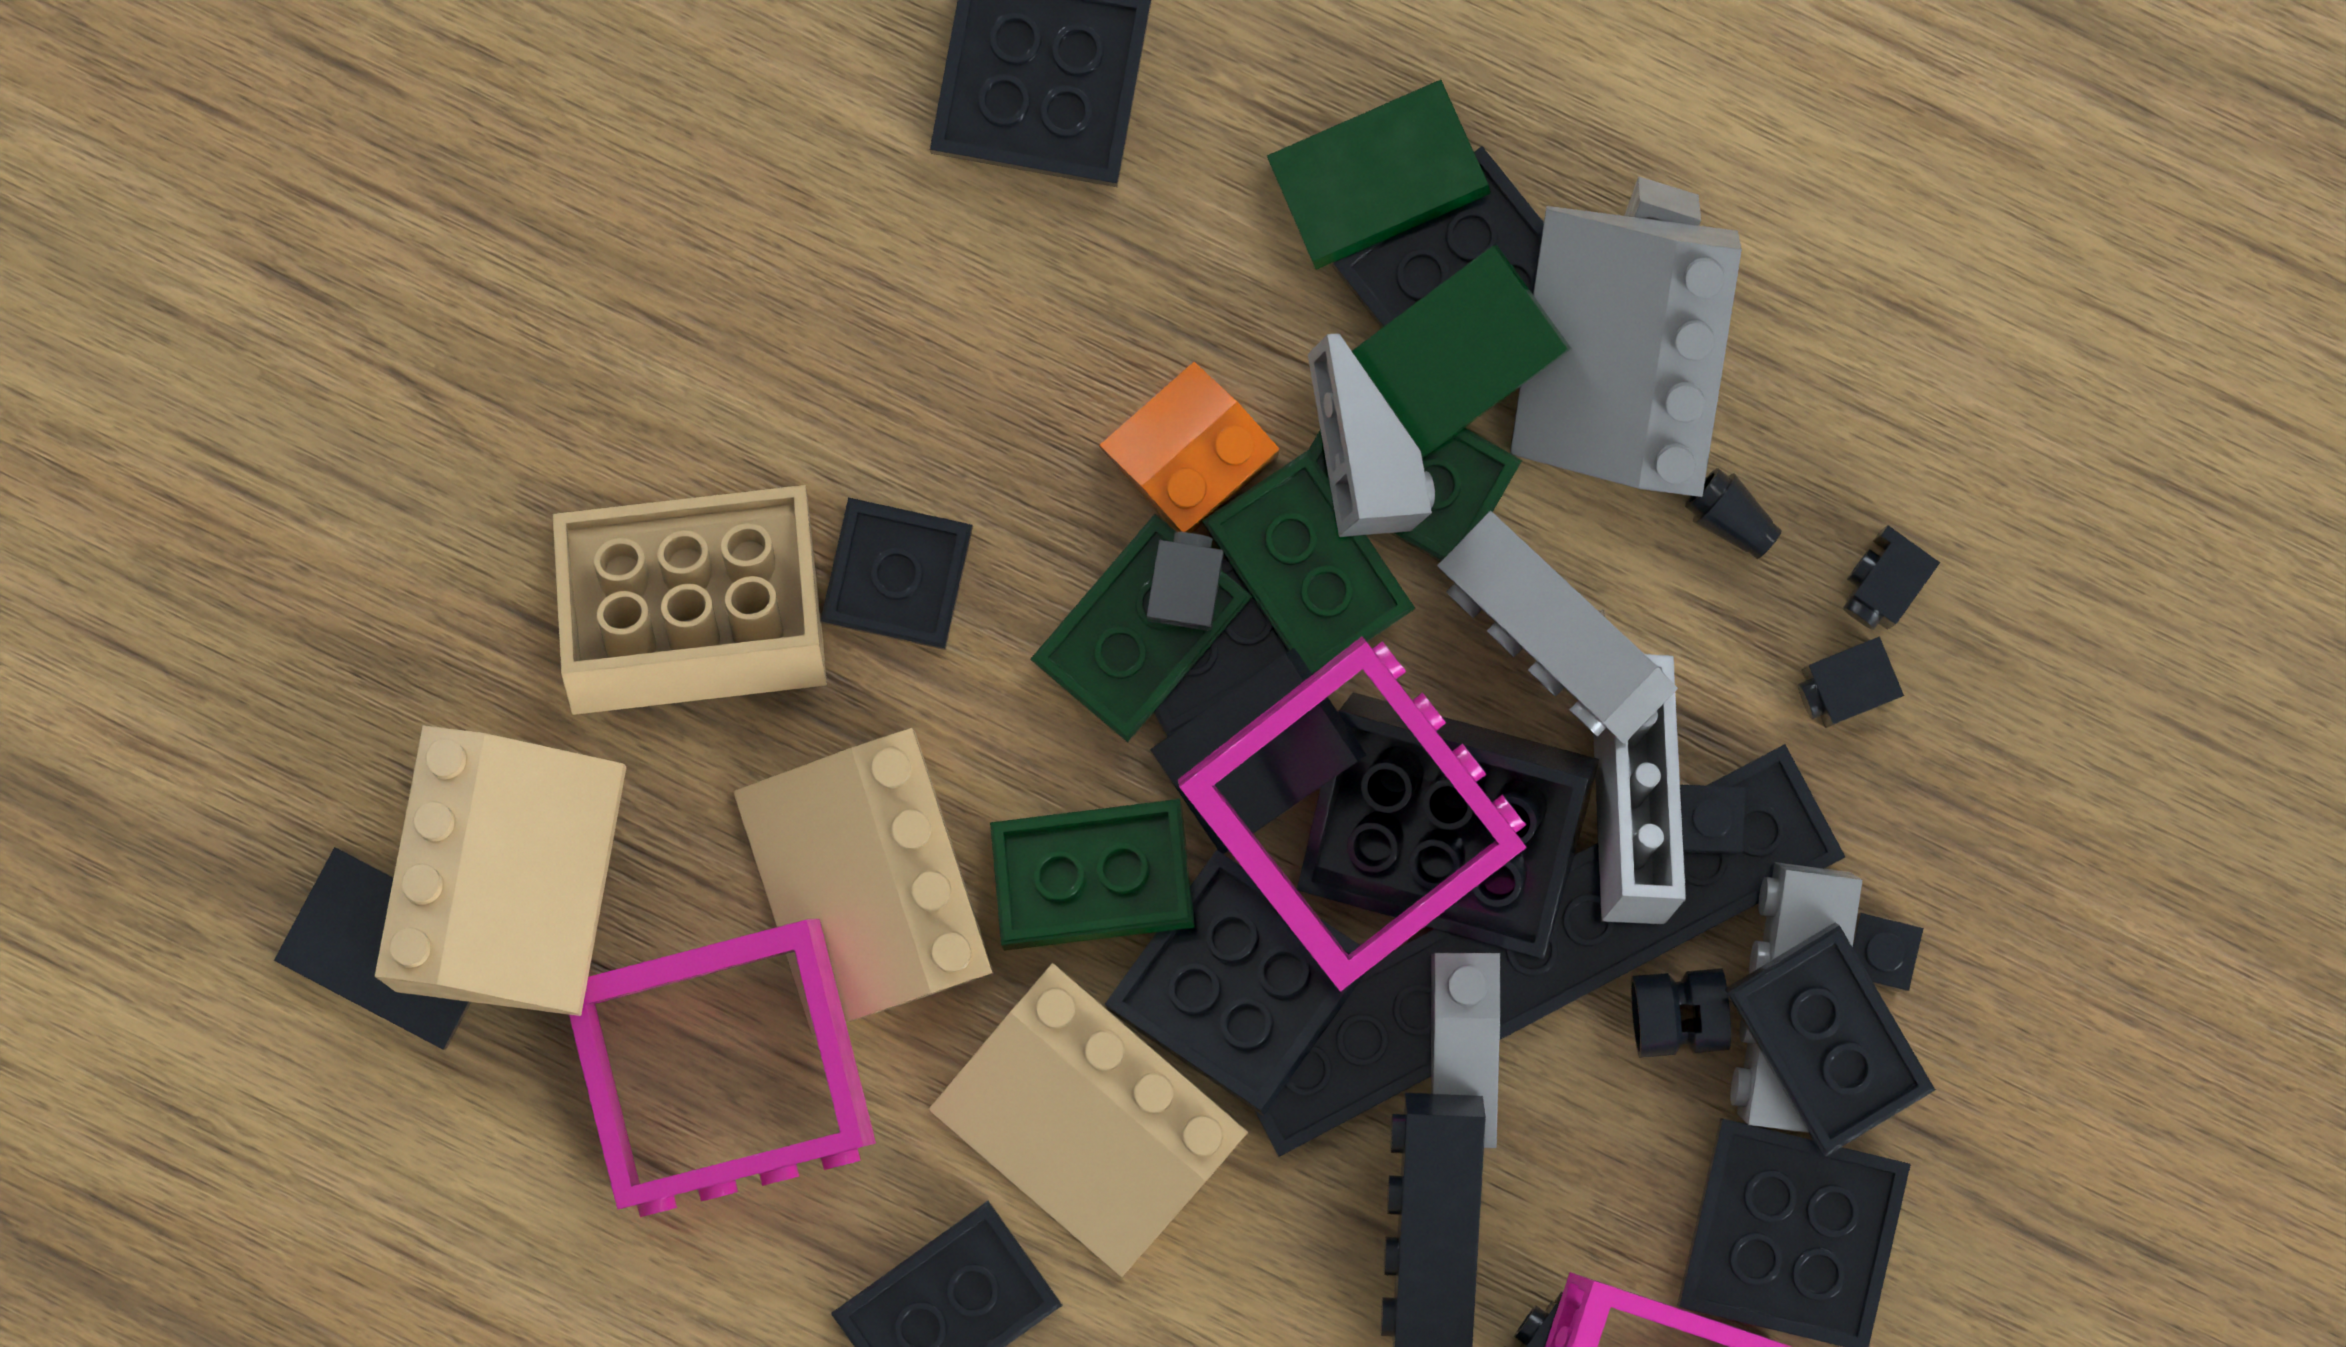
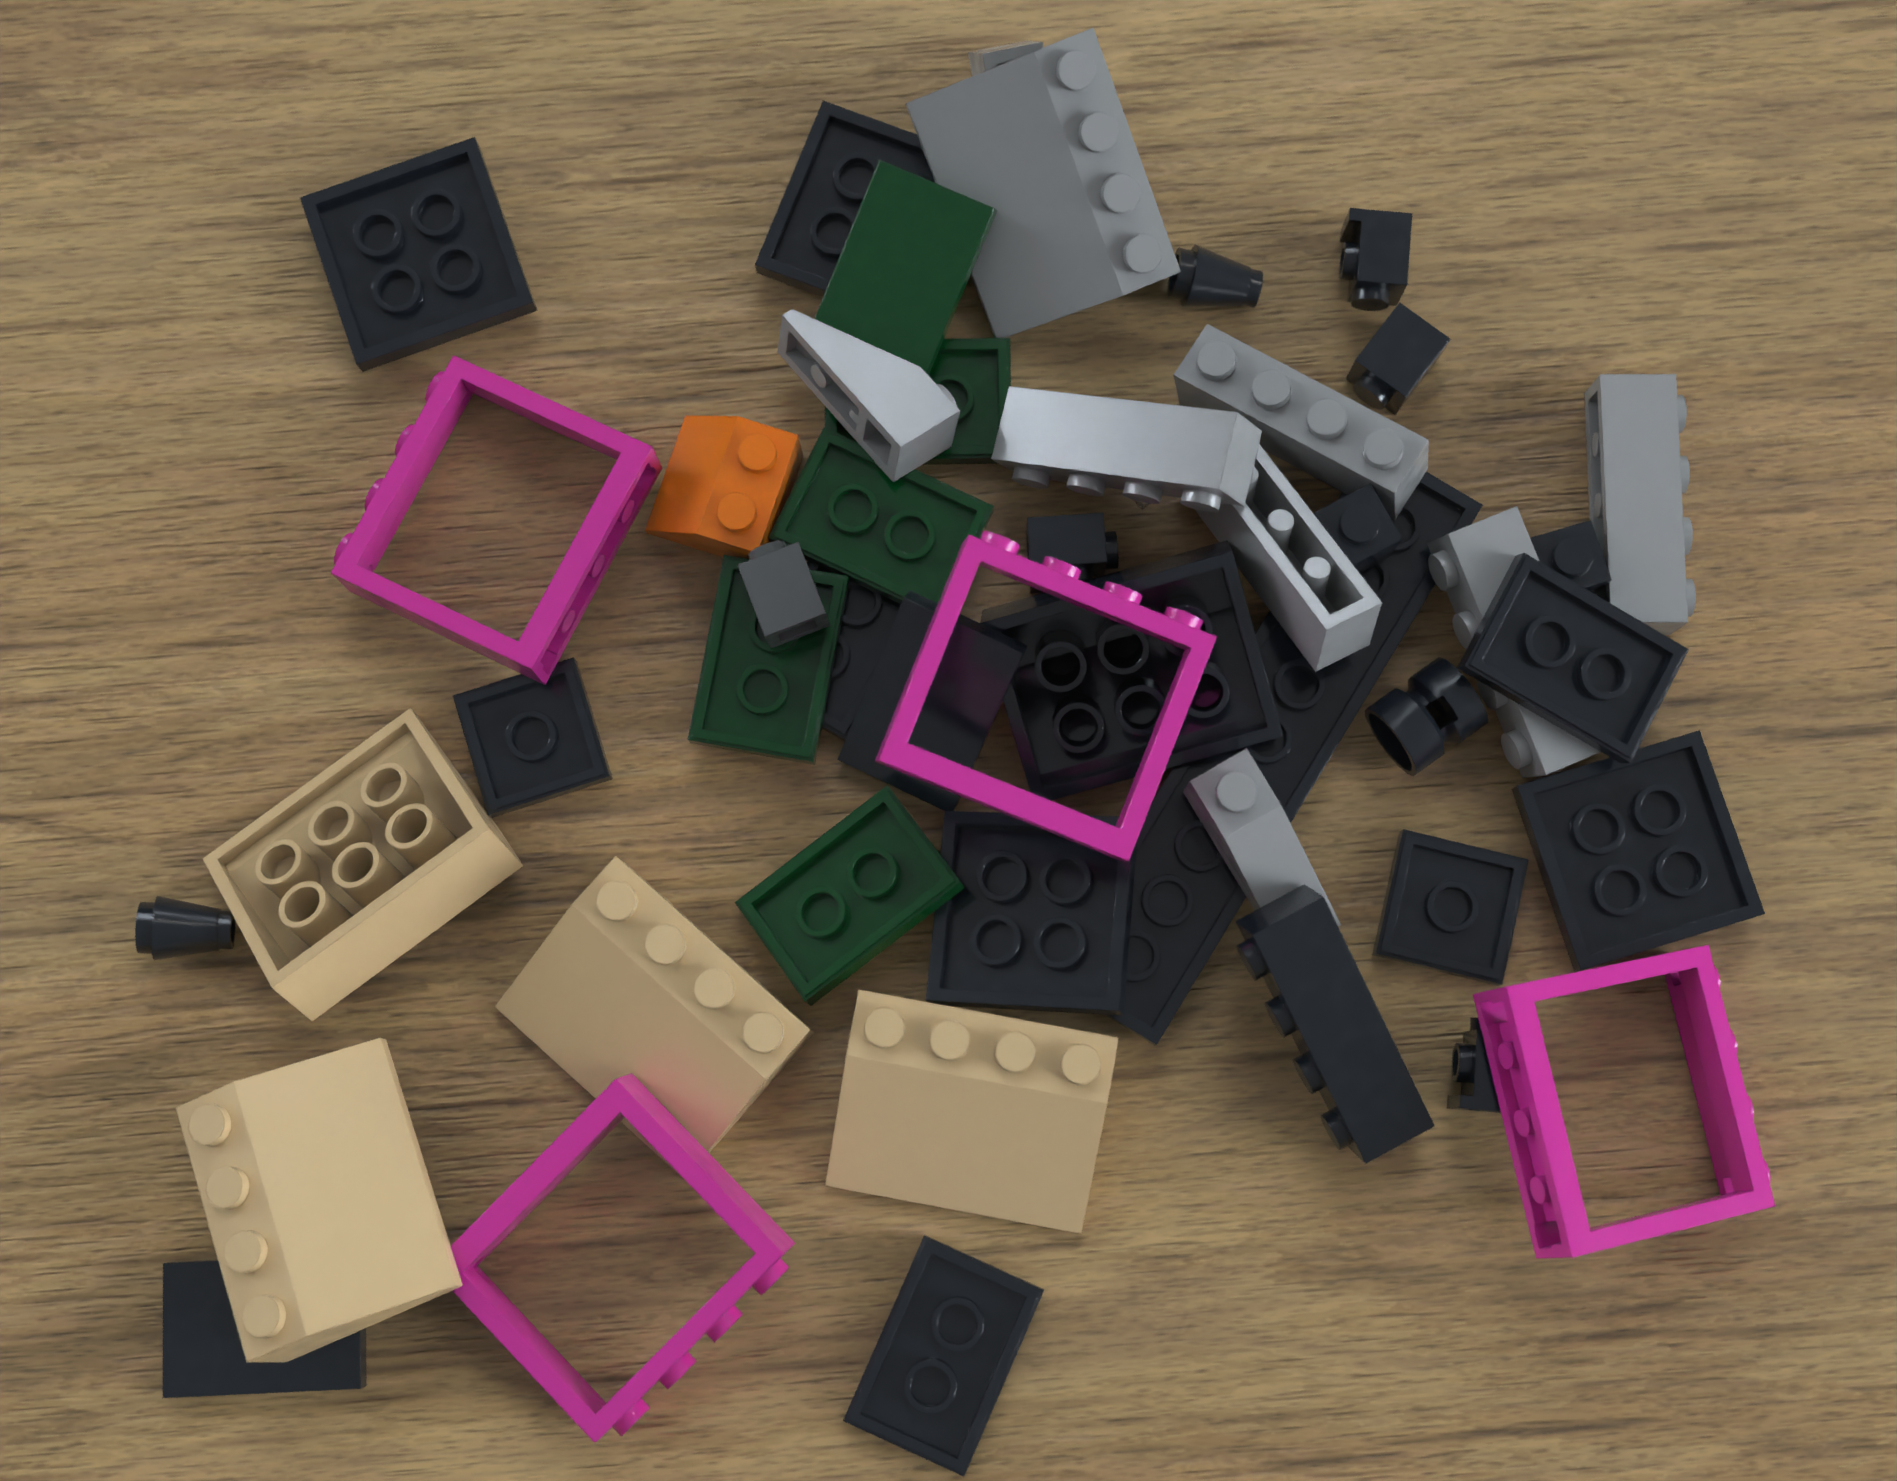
camera: 25 degrees left, 5 degrees down
(505, 568) = (182, 928): none -> black cone
(1028, 451) = (582, 565): none -> dark pink window
(1378, 174) = (750, 171): dark green tile -> none
(1460, 684) = (1075, 540): none -> black brick
(1604, 1188) = (1450, 907): none -> black tile
(1727, 692) = (1304, 419): none -> light grey brick
(1983, 934) = (1638, 493): none -> light grey brick

